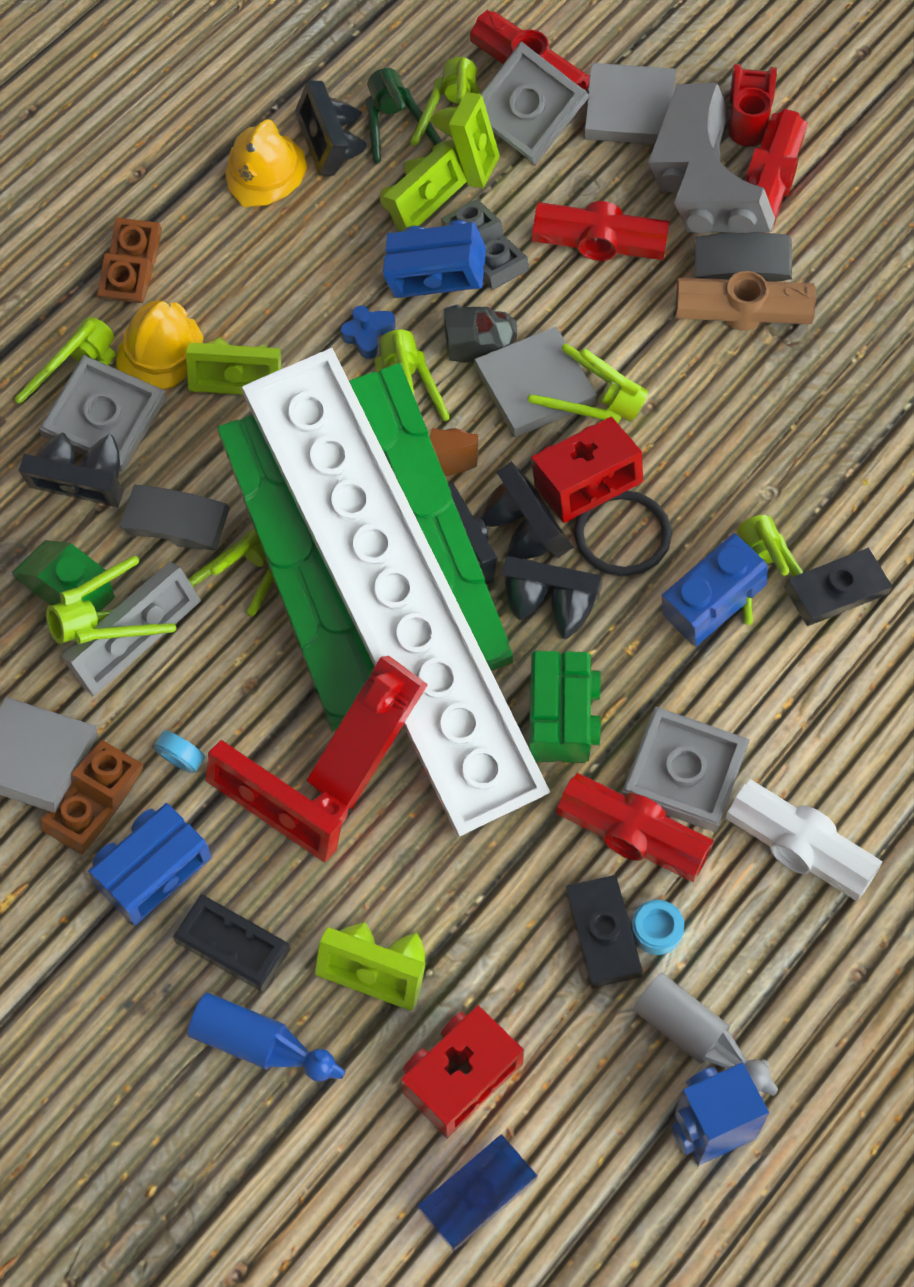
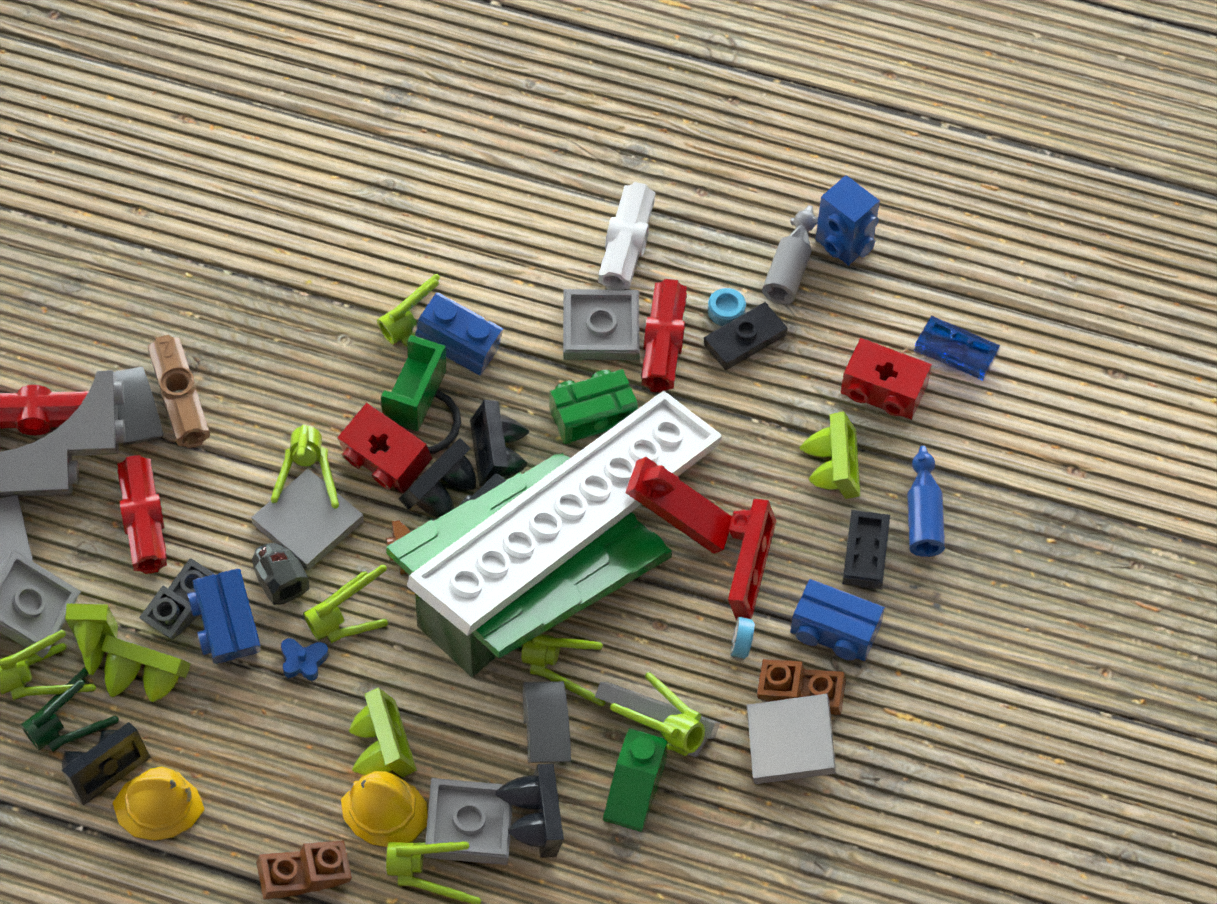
camera: 115 degrees left, 5 degrees down
(656, 523) = (416, 383): none -> green panel
(837, 586) = (414, 266): black plate -> none

